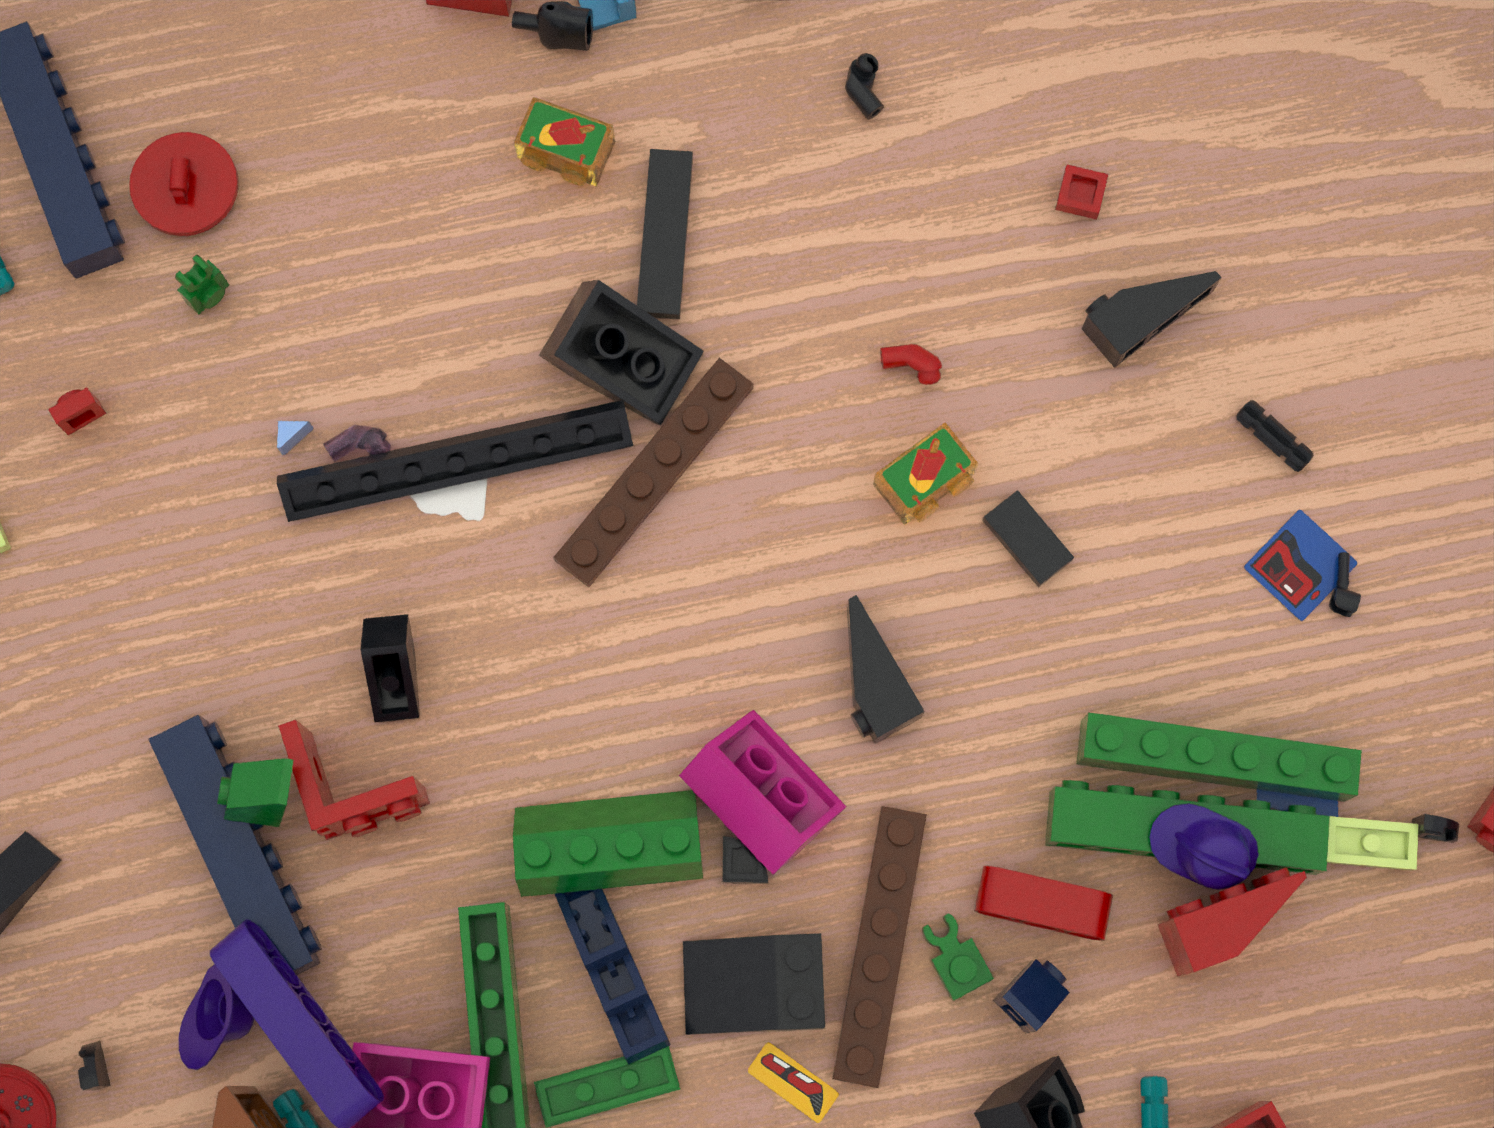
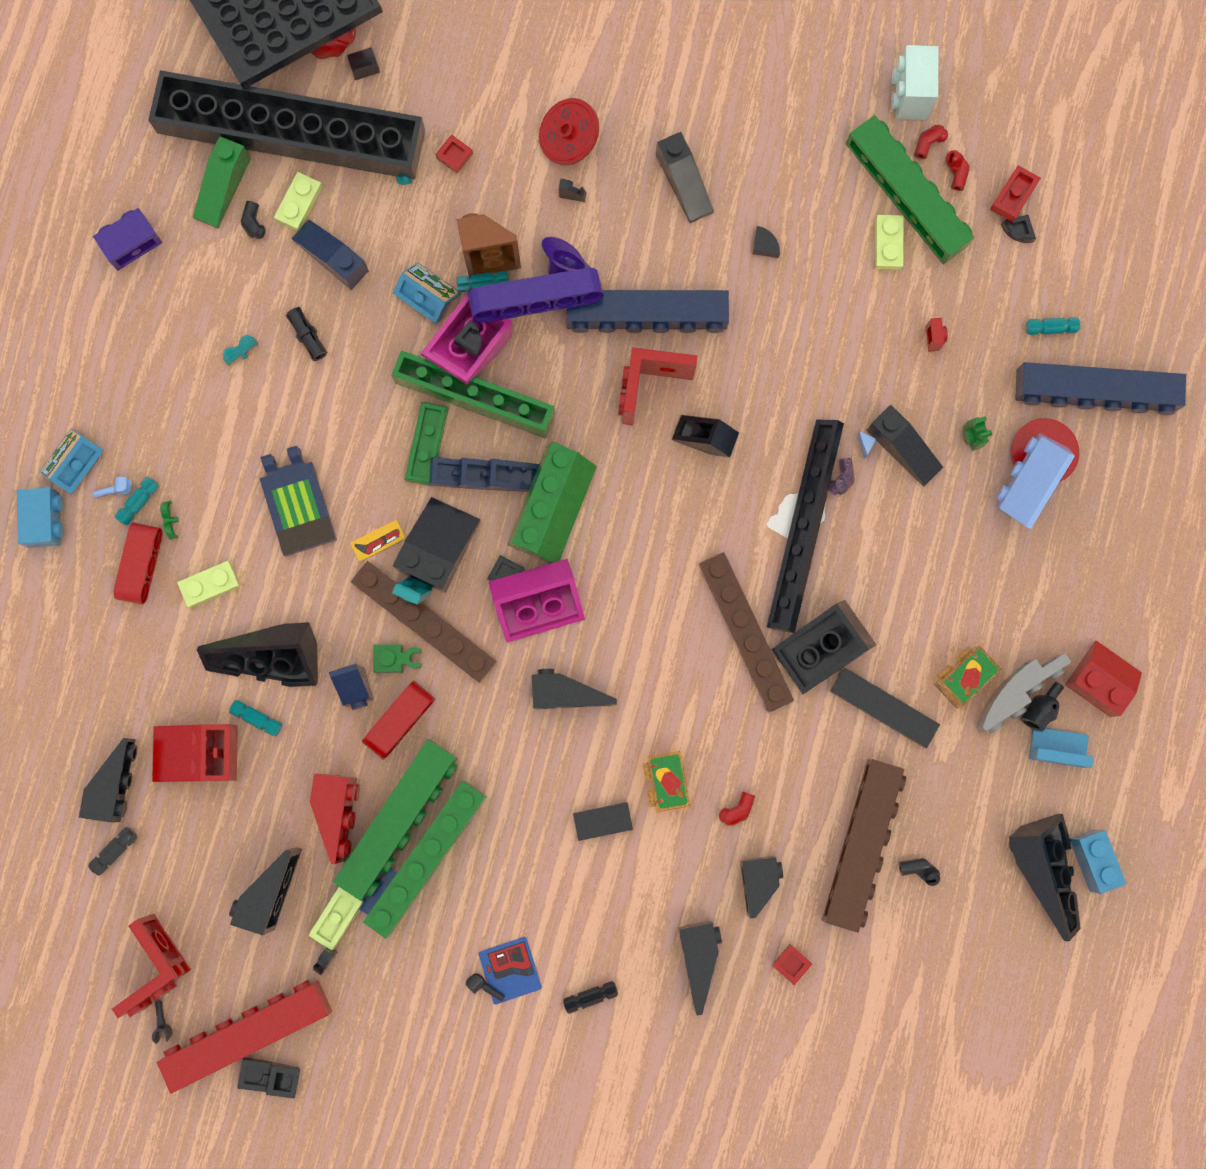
camera: 115 degrees right, 5 degrees up
(43, 727) = (765, 243): none -> black tile
(237, 168) = (1034, 479): none -> light blue slope
(256, 791) = (669, 329): green slope -> none
(266, 379) = (905, 445): none -> black slope
(417, 1089) = (469, 339): none -> black tile
(562, 75) = (1011, 695): none -> light grey slope
(846, 978) = (412, 590): none -> teal plate
(871, 172) = (863, 845): none -> reddish brown brick
(996, 284) = (760, 882): none -> black slope
(1203, 846) = (379, 820): dark purple piece -> none
(1419, 958) = (263, 901): none -> black slope

